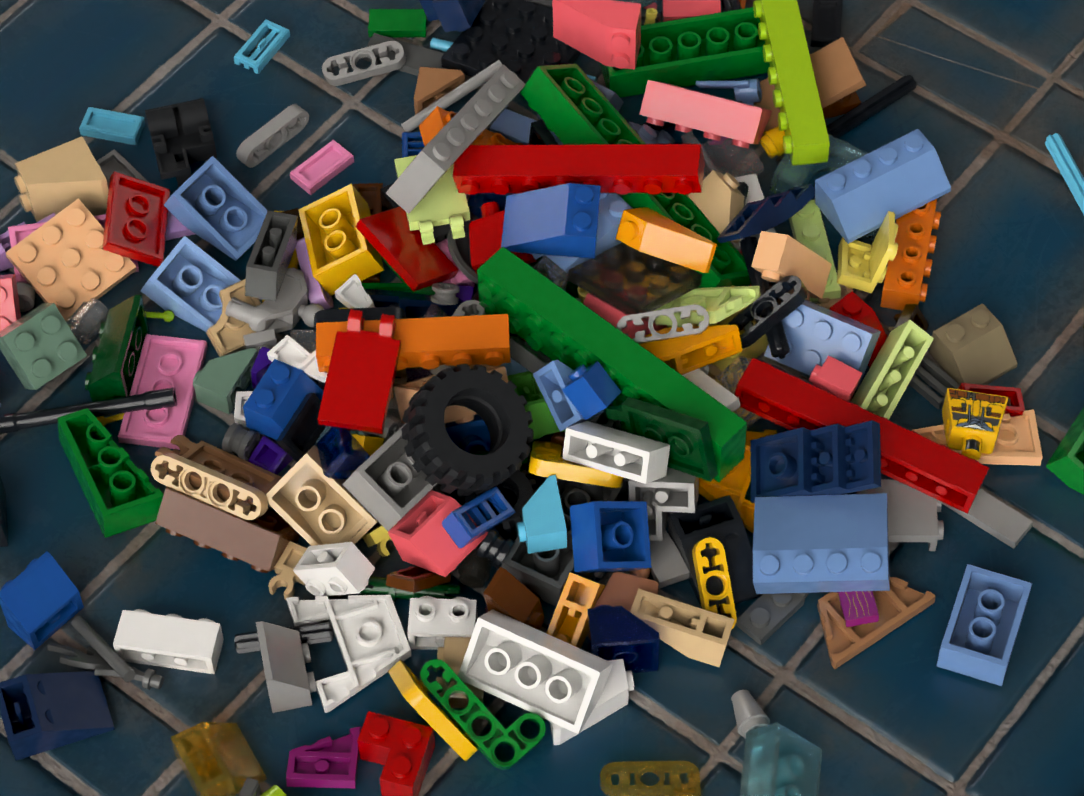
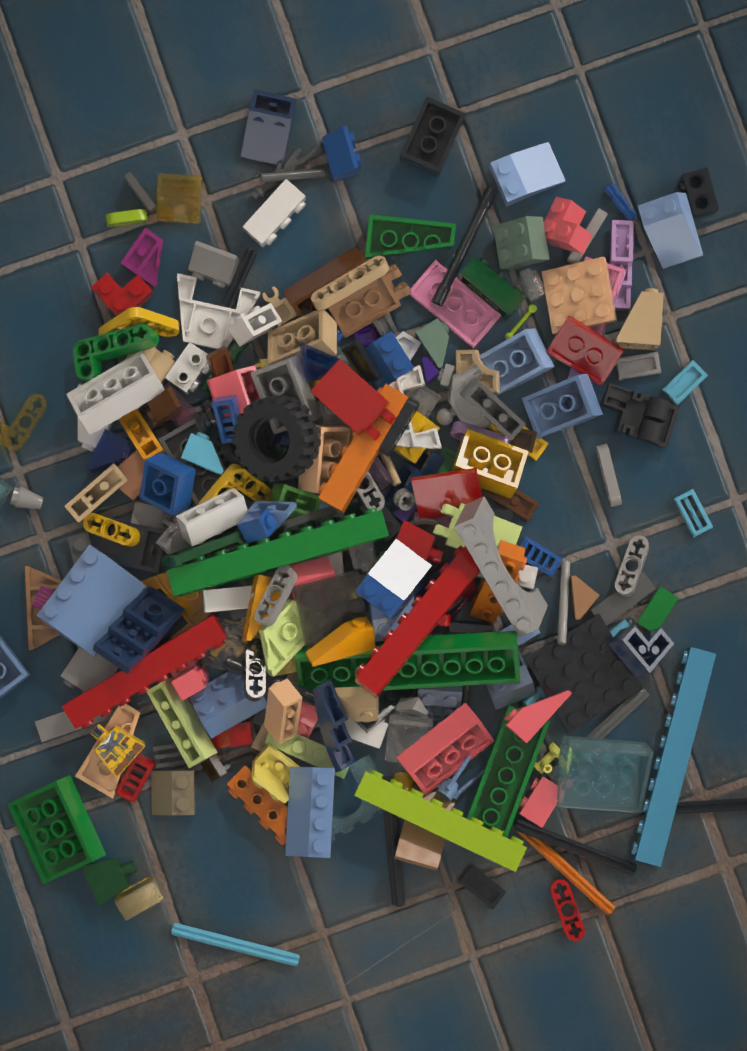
camera: 115 degrees right, 30 degrees up
(322, 167) = (567, 493): bright pink tile -> none

